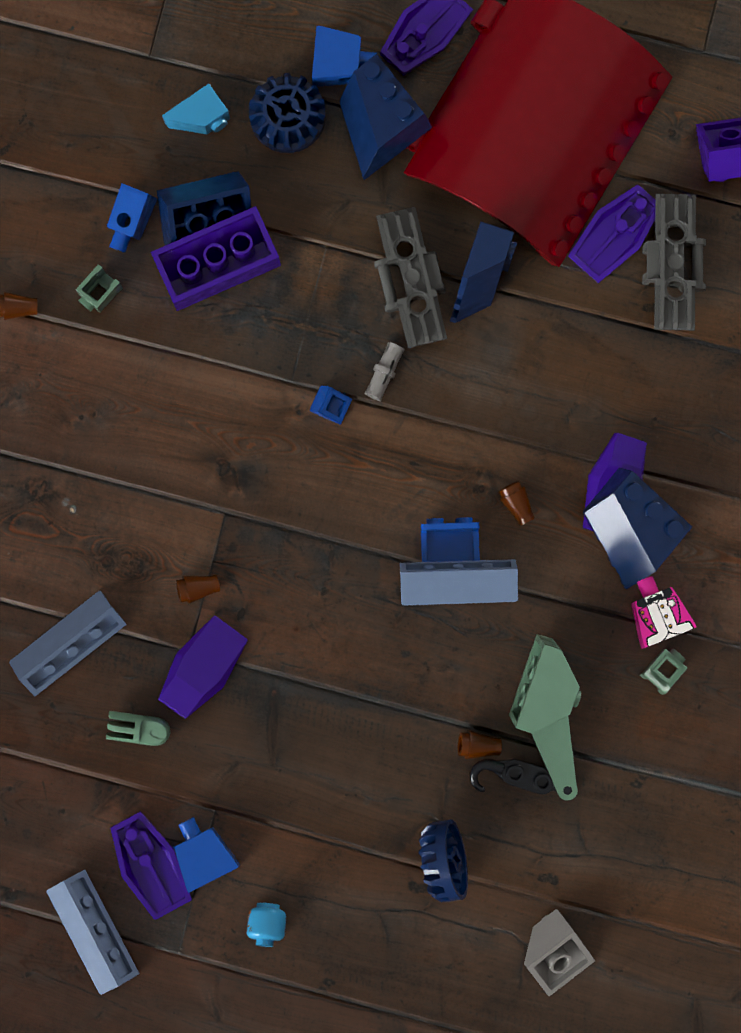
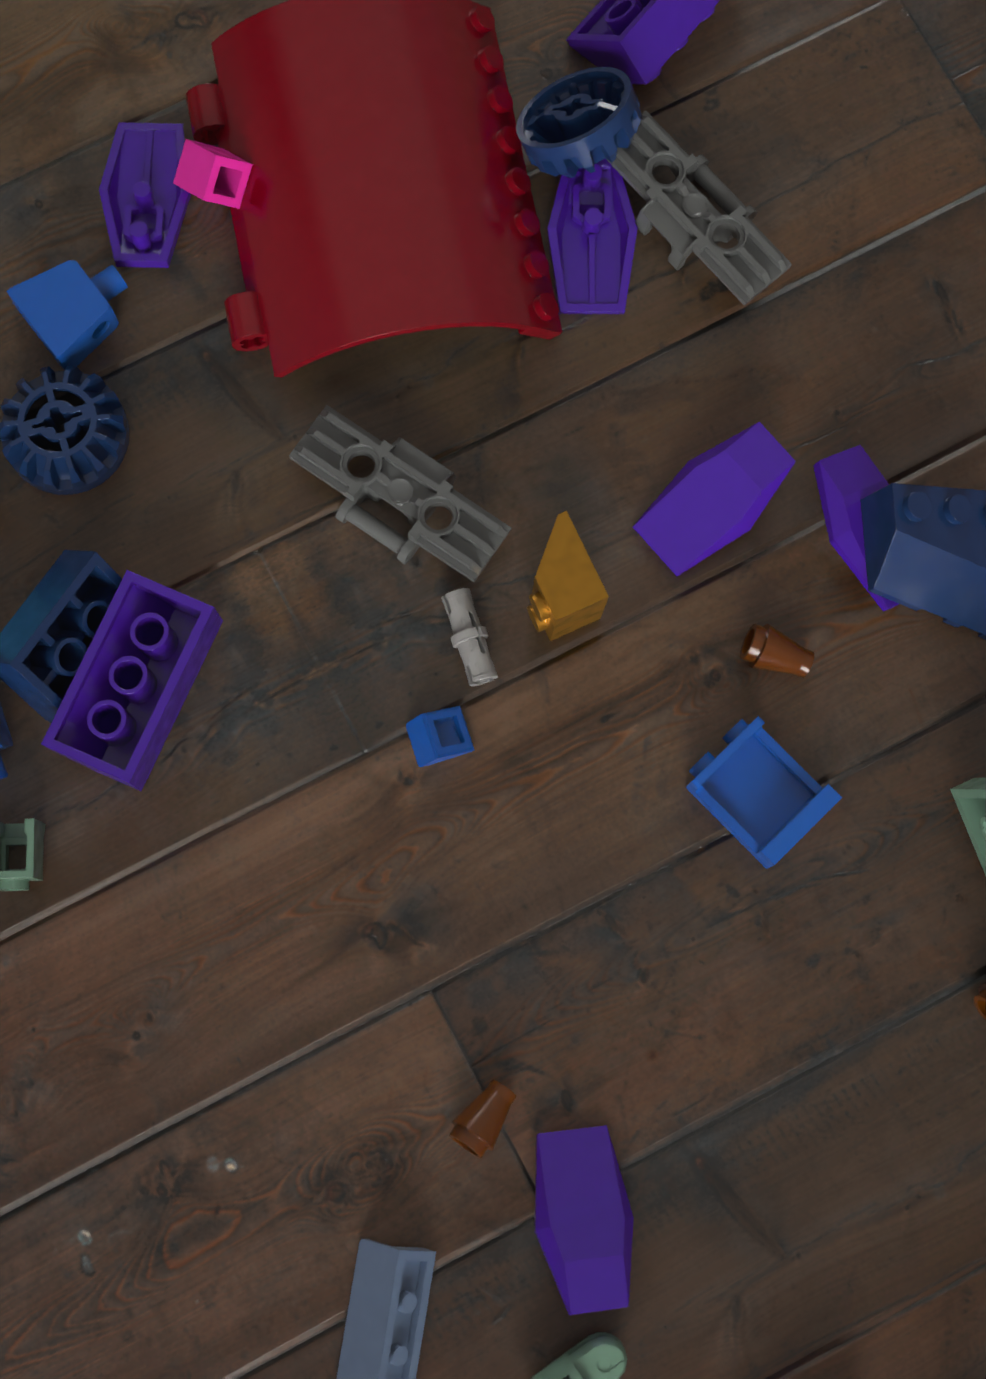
camera: 50 degrees left, 5 degrees down
(380, 115) = (183, 330): dark blue wedge -> none
(444, 384) = (566, 585): none -> pearl gold slope
(459, 582) = (802, 810): sand blue panel -> none
(460, 49) = (212, 173): none -> dark pink brick
(488, 258) = (480, 401): dark blue wedge -> none
(555, 408) = (715, 498): none -> dark purple piece
(662, 167) = (579, 121): none -> dark blue gear

